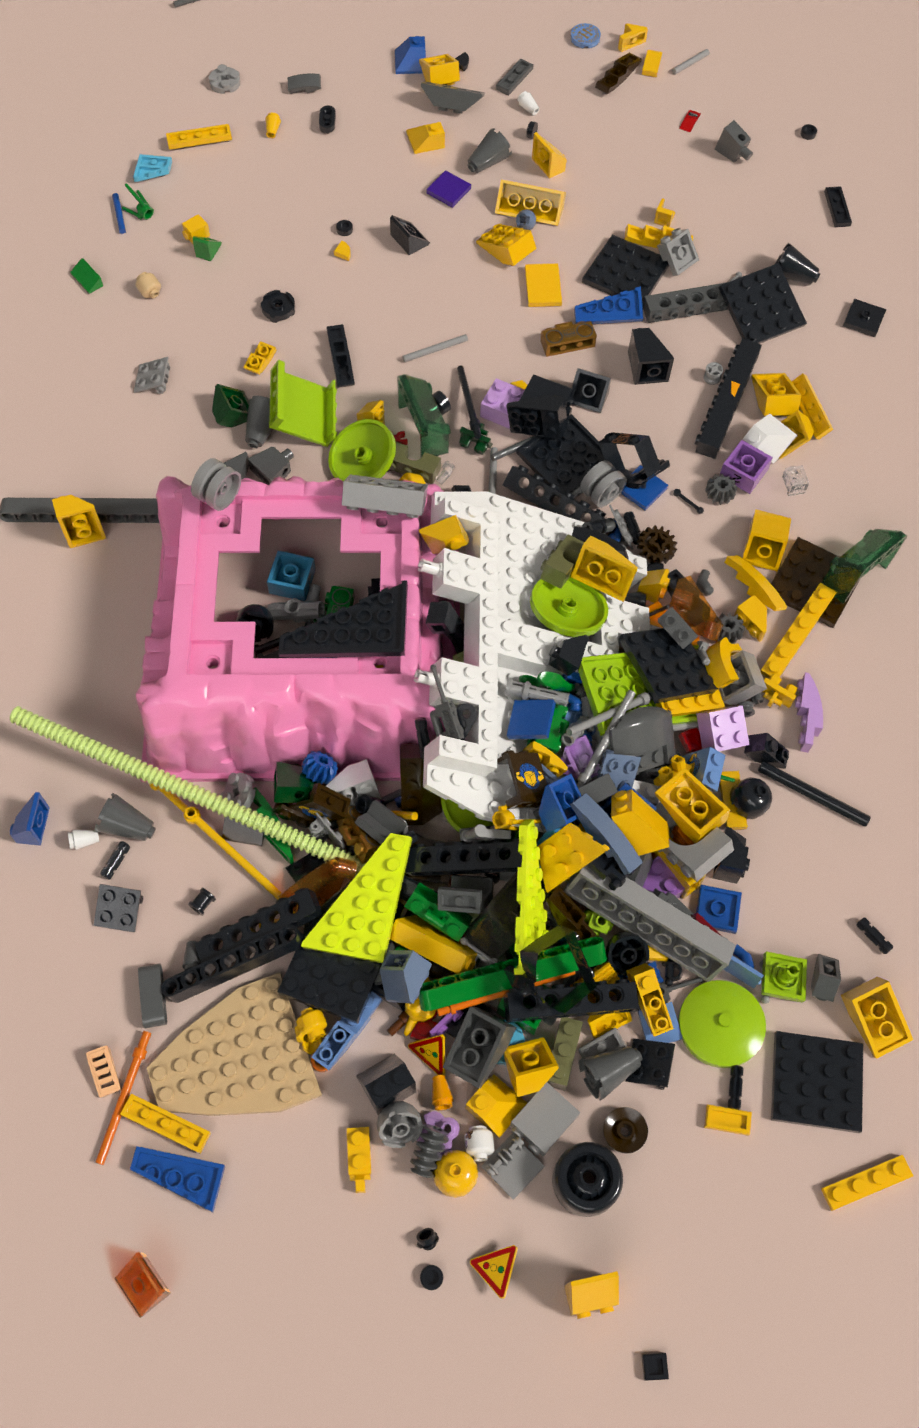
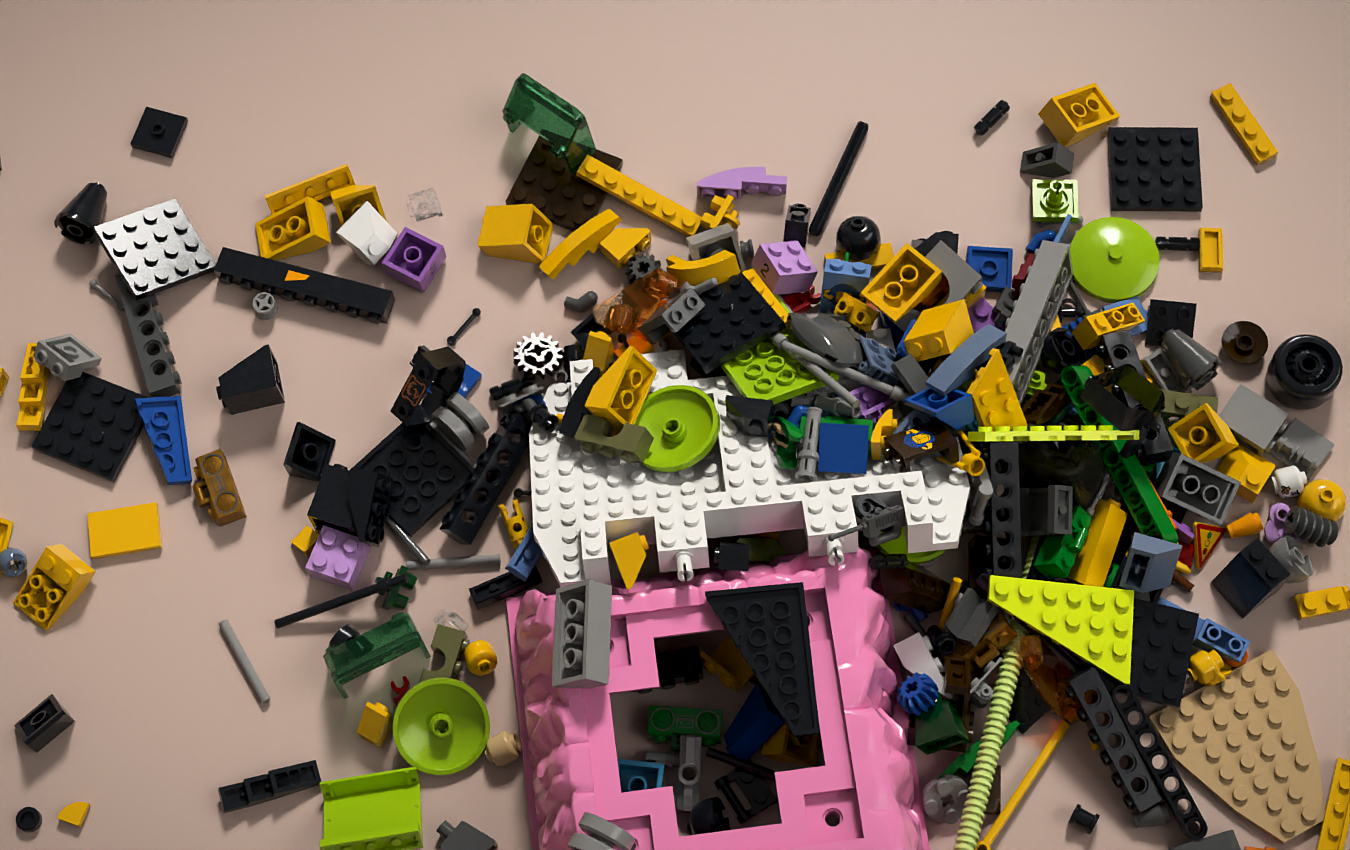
camera: 90 degrees left, 5 degrees up
(721, 489) = (454, 291): dark grey gear -> none

